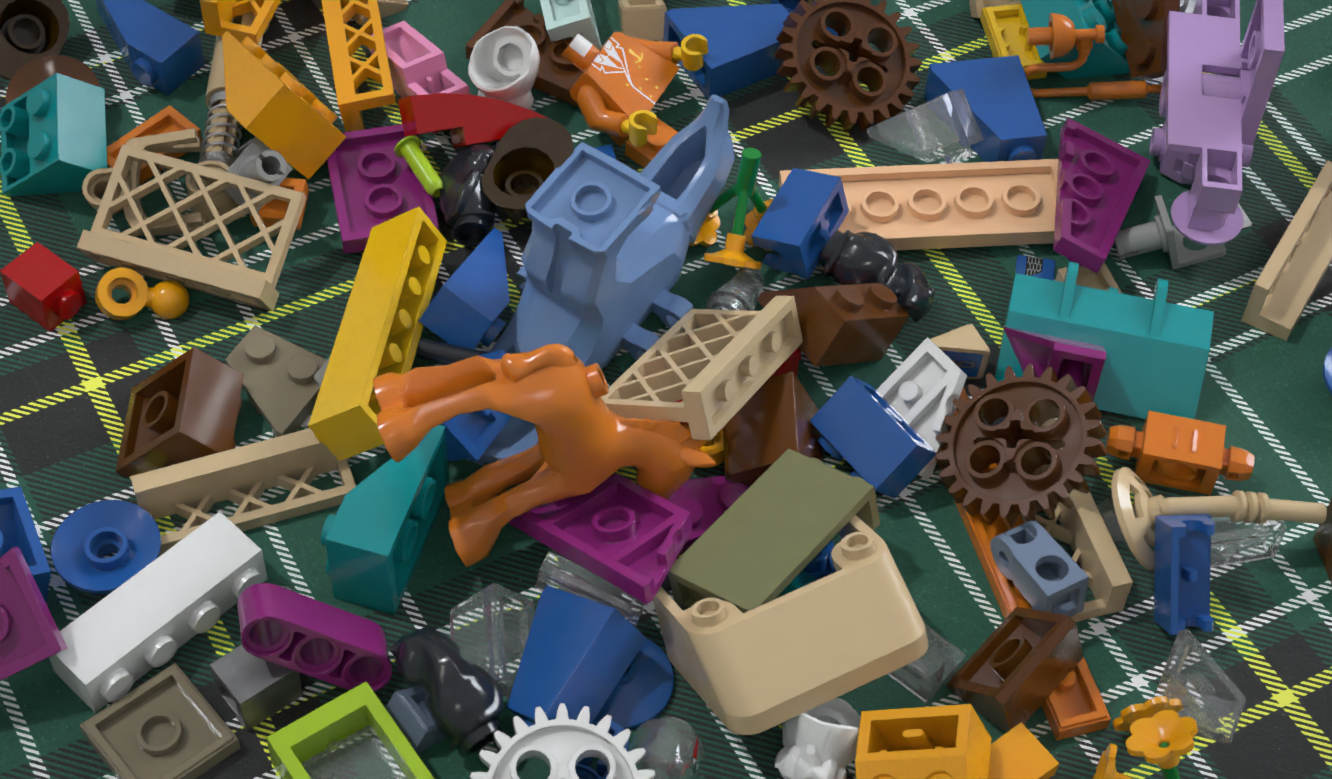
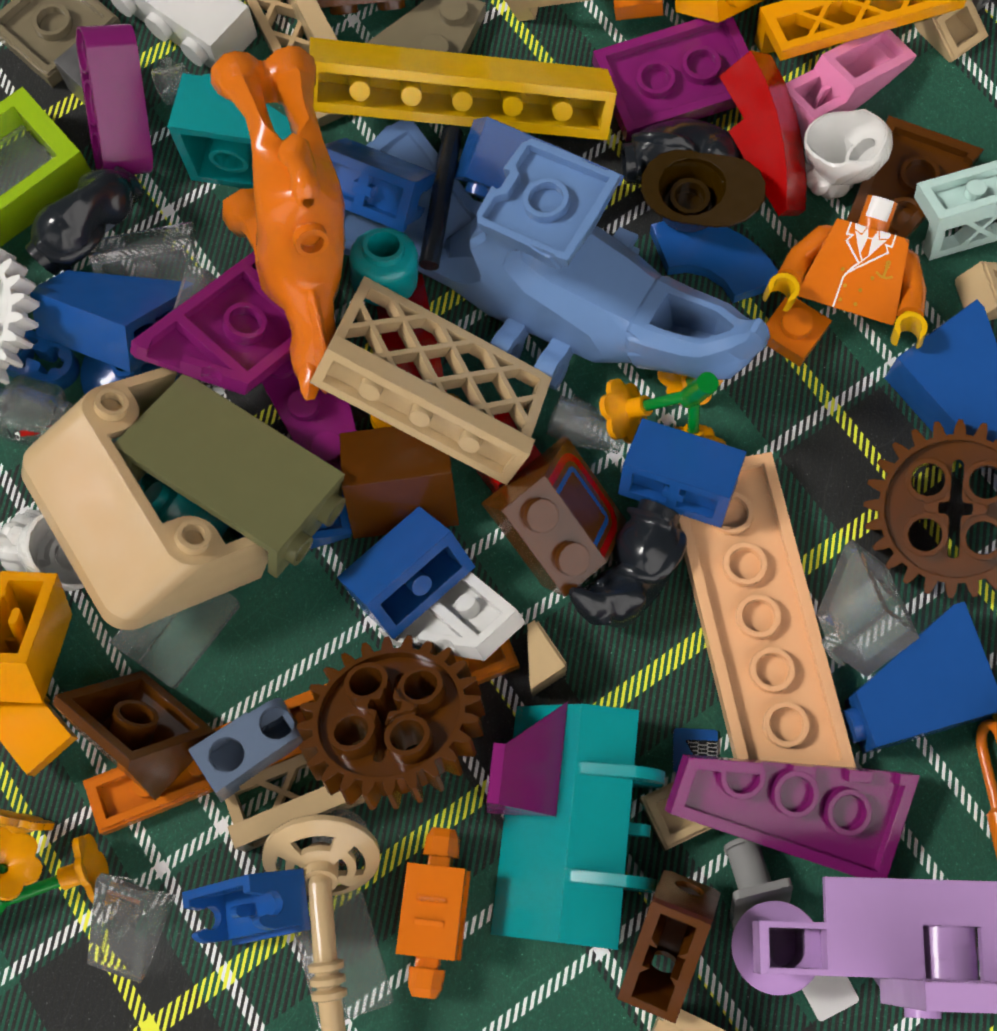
camera: 90 degrees right, 20 degrees up
(410, 150) = (695, 97): lime piece -> none
(1209, 270) = (675, 928): none -> reddish brown torso

